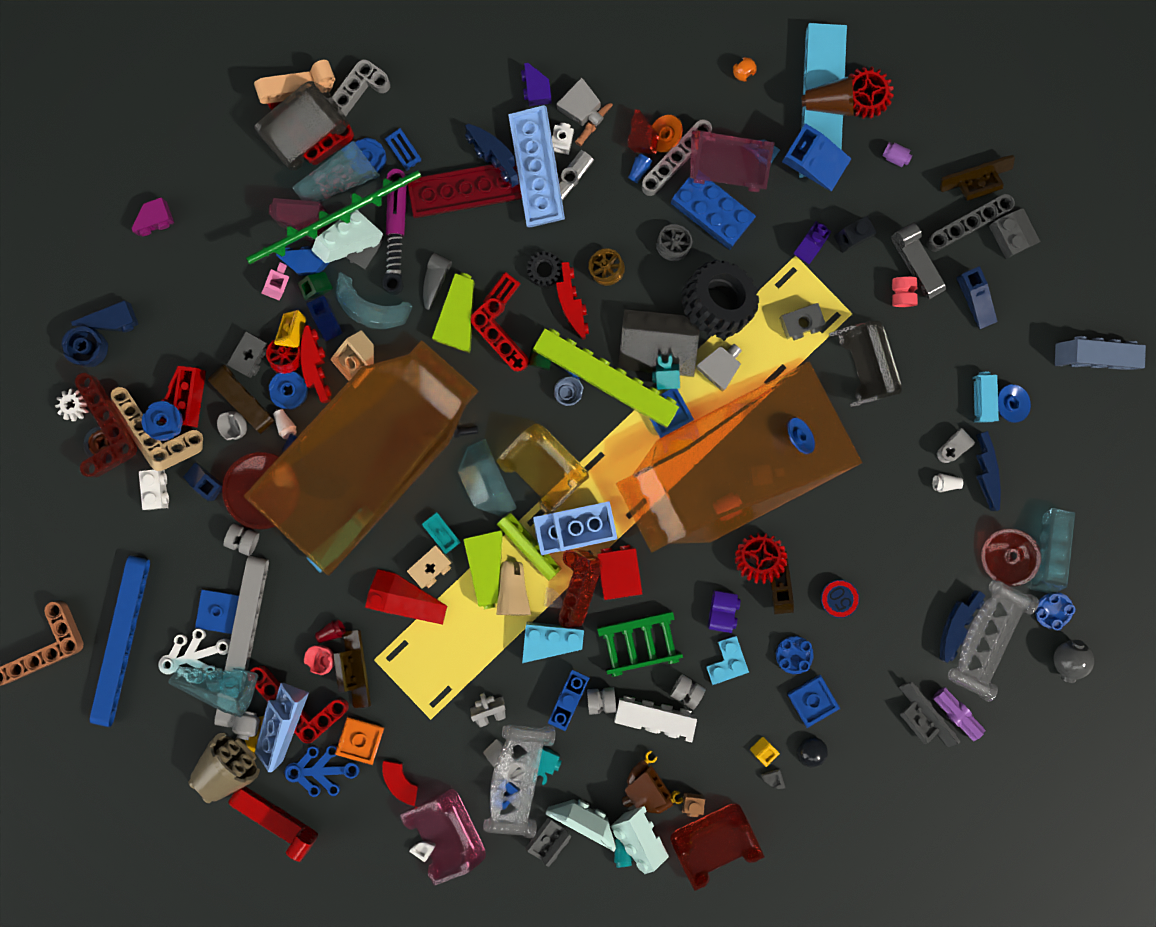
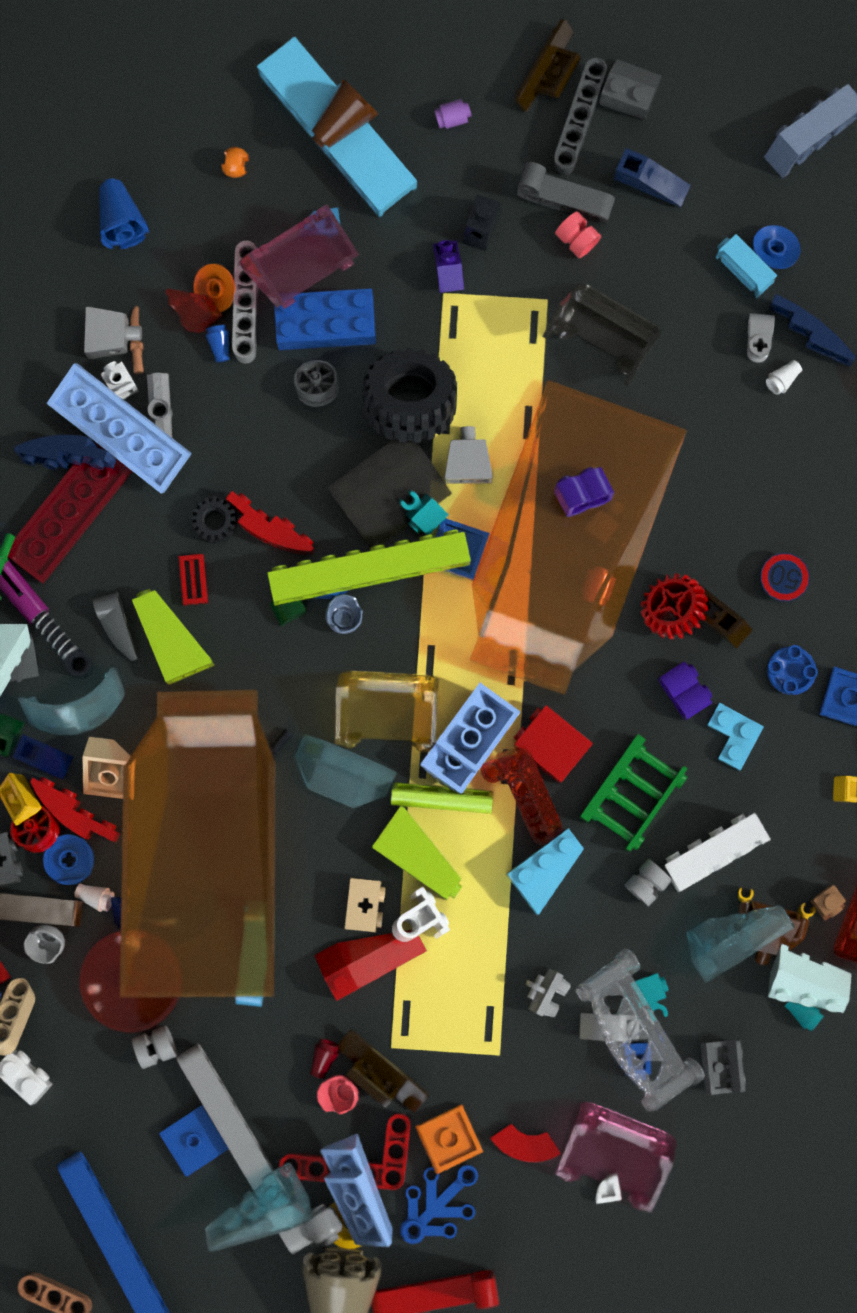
camera: 35 degrees left, 5 degrees down
(190, 656) = (206, 1208): white plant -> none
(203, 482) = (66, 1024): dark blue slope -> none
(441, 533) = (345, 863): teal plate -> none
(455, 604) = (421, 918): none -> white pin
(502, 337) = (233, 620): red beam -> none
(512, 591) = (469, 858): tan piece -> none
(537, 86) = (50, 353): dark purple slope -> none
(552, 598) = (511, 828): clear tile -> none
(568, 700) = (615, 910): blue slope -> none
(584, 820) = (739, 1014): light aqua wedge -> none
(606, 267) = (272, 463): pearl gold wheel -> none
(616, 776) = (730, 939): none -> clear light blue wedge
(648, 42) = (119, 216): none -> blue cone
(688, 692) = (723, 798): light grey wheel -> none
(769, 446) = (583, 491): none -> dark purple brick
(801, 435) = (605, 455): blue dish -> none
(811, 314) = (508, 334): dark grey brick -> none
(817, 157) = (380, 183): blue slope -> none
(882, 88) = (380, 65): red gear -> none

